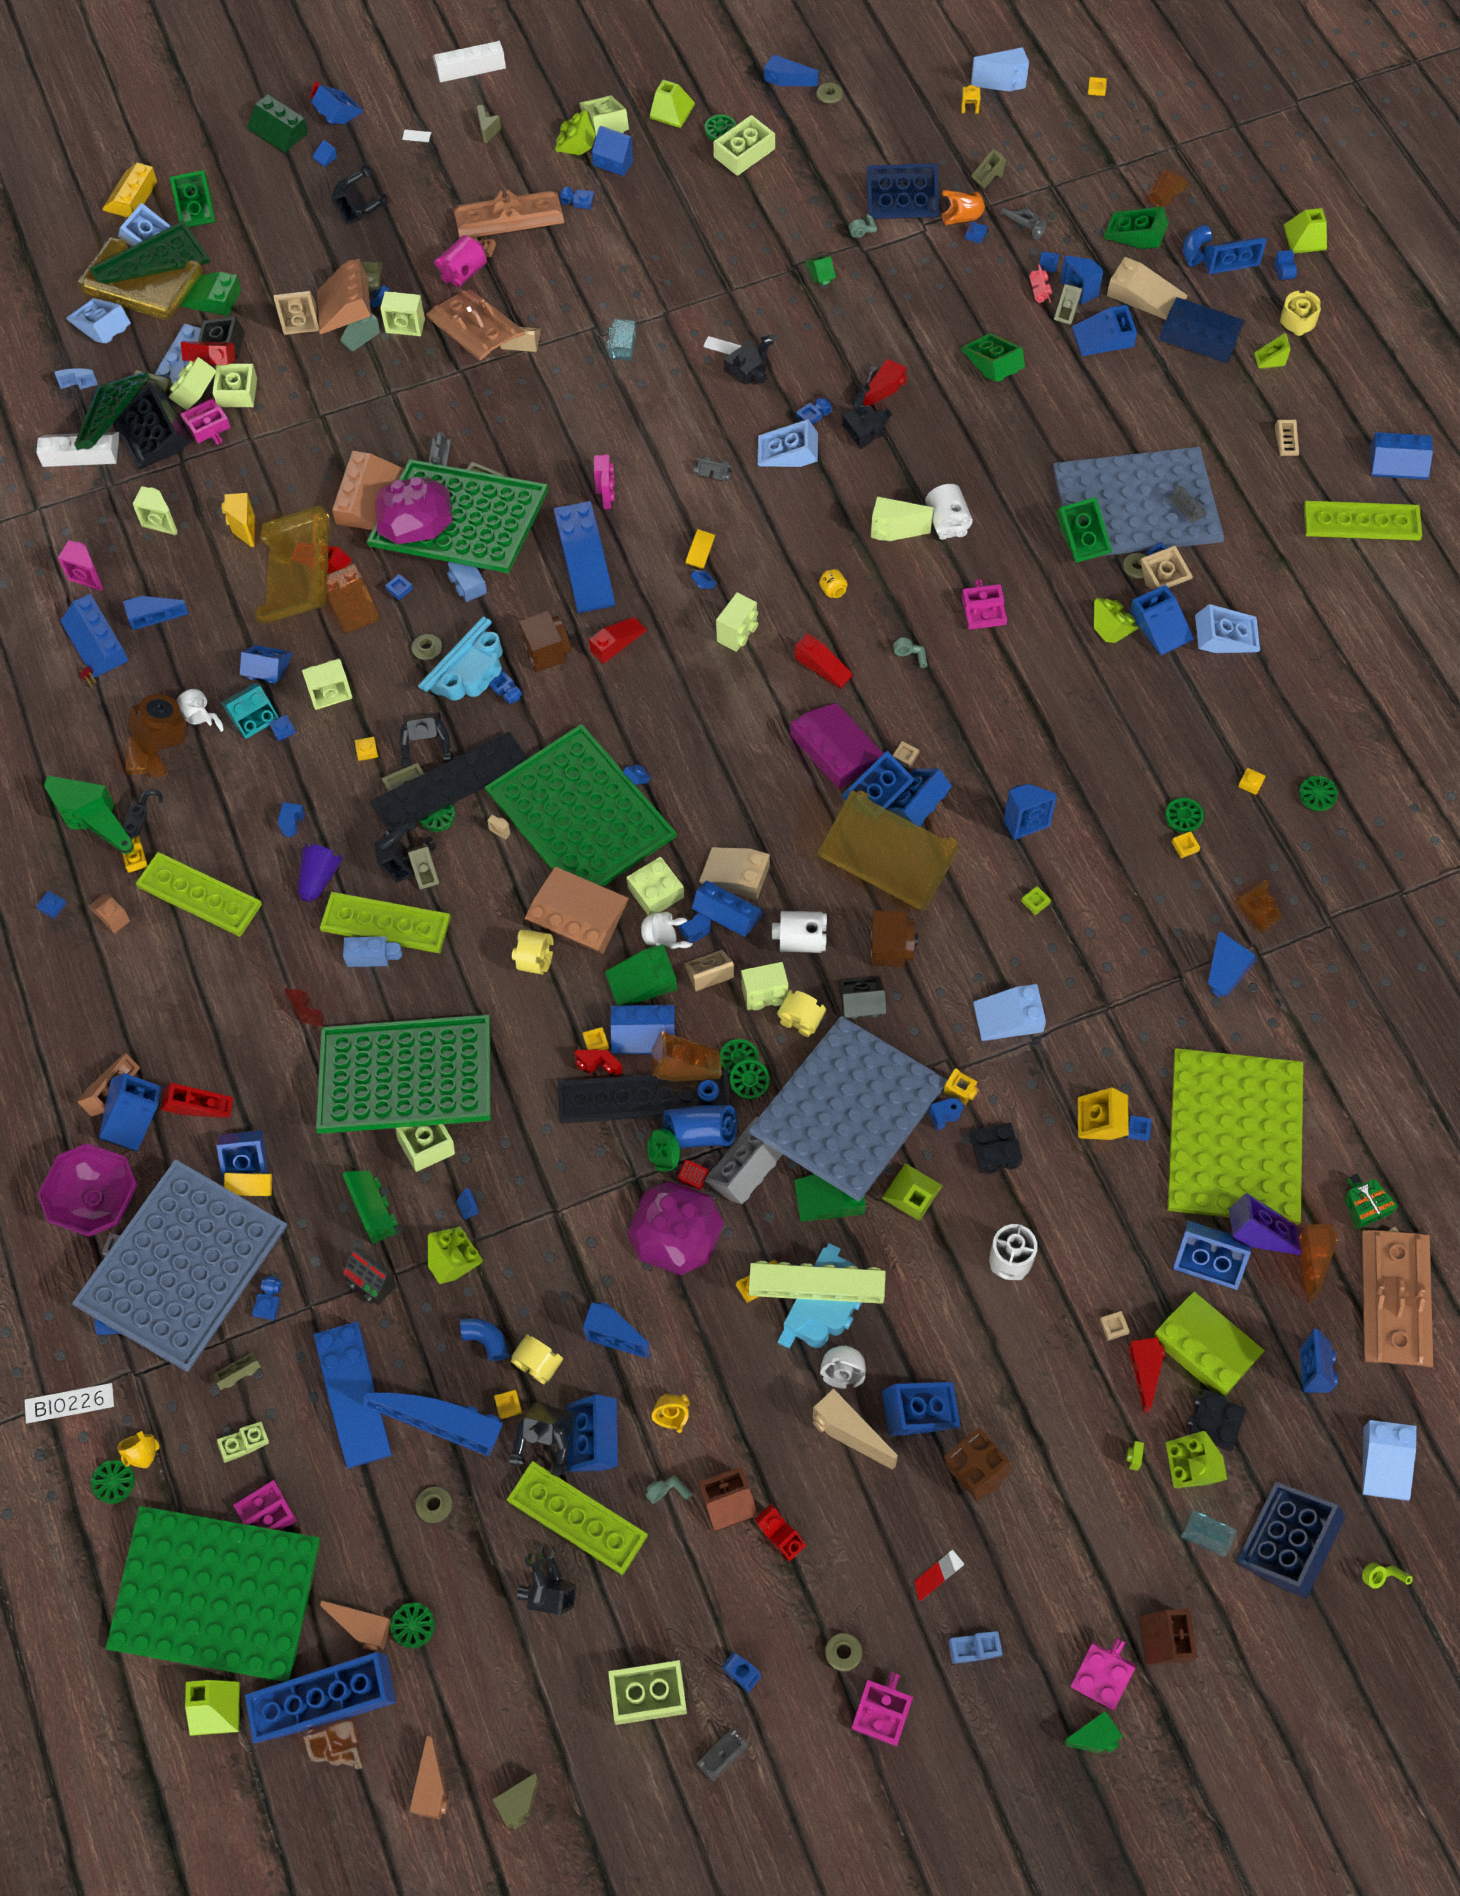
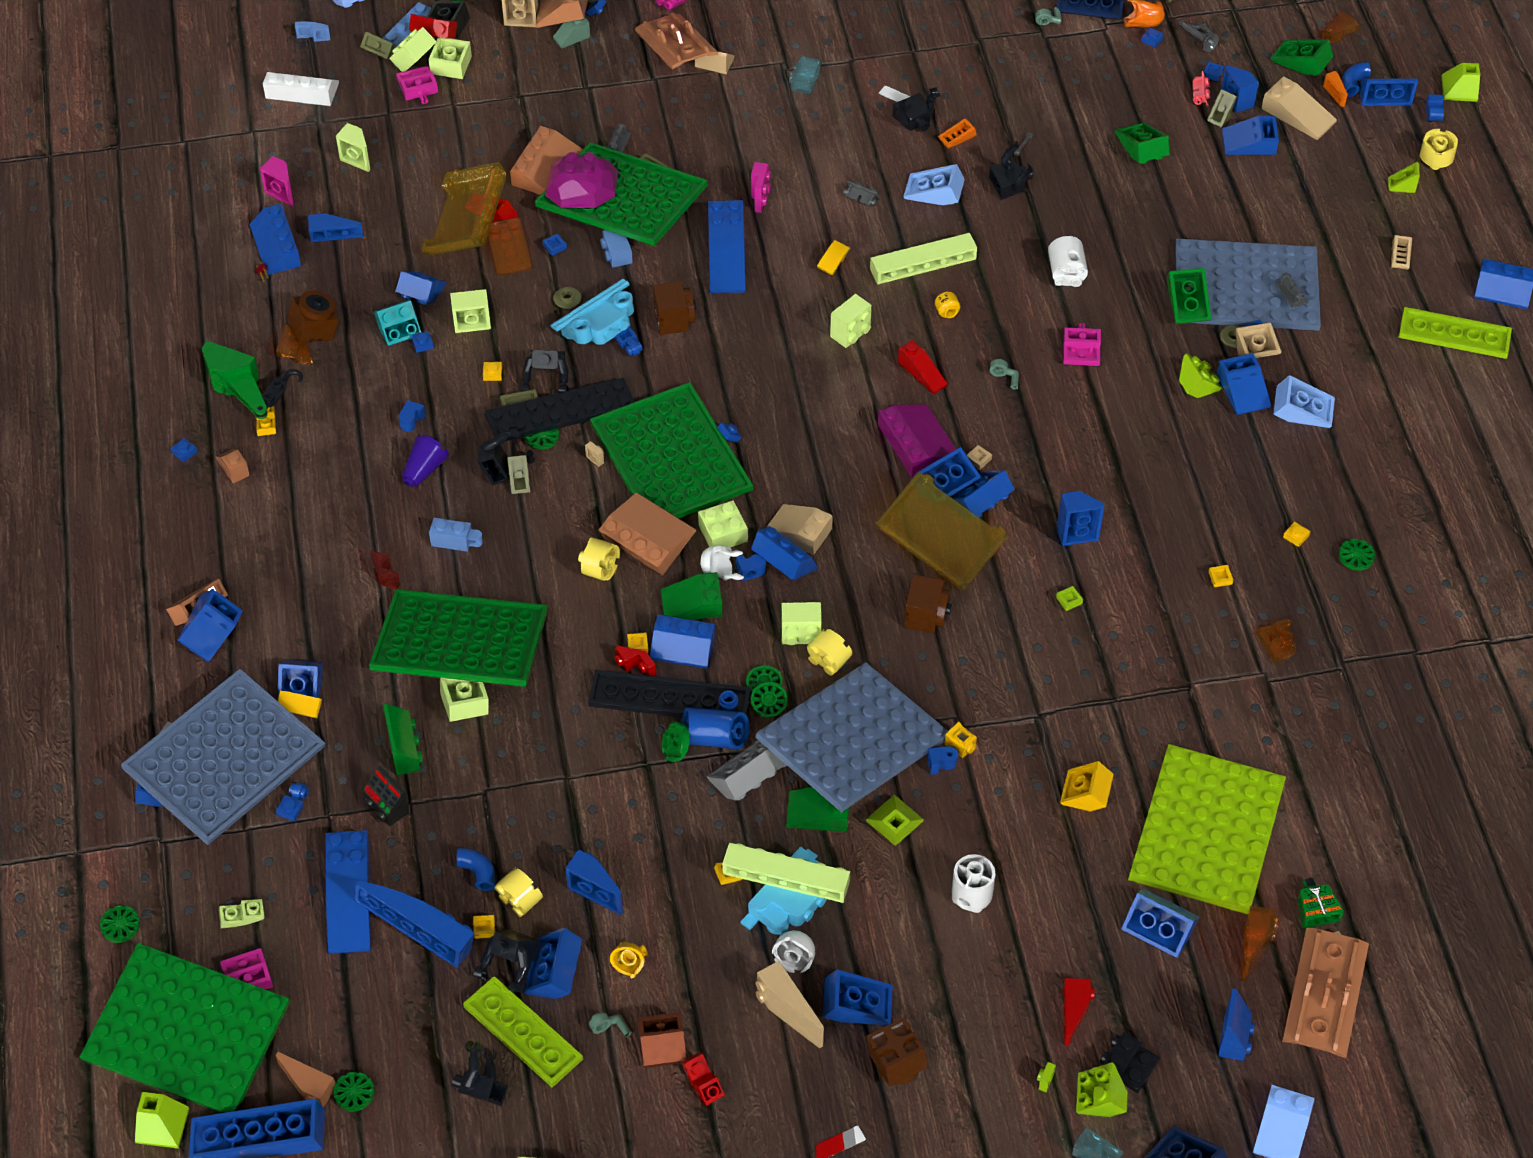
camera: 10 degrees right, 10 degrees down
(69, 1403) = (97, 854): white sticker -> none
(87, 1190) = (157, 679): magenta rock -> none
(106, 406) = (333, 55): dark green wing -> none
(138, 1450) = (149, 902): yellow helmet -> none
(151, 427) = (367, 80): black slope -> none
(192, 708) = (348, 309): white hair -> none
(195, 1102) = (269, 629): red slope -> none
(199, 894) = (315, 463): lime plate -> none
(232, 1373) = (257, 852): olive plate -> none
(240, 516) = (428, 163): yellow slope -> none
(398, 923) = (492, 519): lime plate -> none
(402, 313) = (613, 22): yellowish green brick -> none
(436, 1515) = (401, 1004): olive piece -> none
(451, 1254) = (464, 794): lime slope -> none
(467, 1204) = (489, 757): blue slope -> none
(615, 638) = (737, 317): red slope -> none
(675, 1228) = (671, 811): magenta rock -> none
(684, 1060) = (712, 671): clear orange slope -> none
(692, 1175) = (697, 769): red slope -> none
(703, 579) = (829, 282): blue plate -> none
(710, 970) = (756, 605): tan slope -> none
(795, 533) = (923, 258): none -> yellowish green brick
(795, 929) = (845, 584): white cylinder -> none
(797, 373) = (959, 127): none -> orange slope
(814, 412) = (966, 162): blue plate -> none
(821, 269) = (1001, 45): green slope -> none
(862, 997) = (888, 651): pearl dark grey slope -> none
(886, 382) = (1037, 147): red slope -> none
(899, 519) = (1021, 261): yellowish green slope -> none
(996, 1148) = (981, 797): black plate -> none
(1010, 1013) = (1022, 687): light blue slope -> none
(1114, 1325) = (1054, 965): tan plate -> none
(1139, 1128) = (1118, 804): blue plate -> none
(1179, 259) = (1335, 88): none -> orange slope
(1184, 815) = (1226, 551): green wheel -> none
(1201, 329) = (1341, 149): dark blue slope -> none
(1208, 1344) = (1137, 997): lime slope -> none
(1229, 965) = (1235, 682): blue slope -> none
(1263, 1227) = (1212, 905): dark purple slope -> none

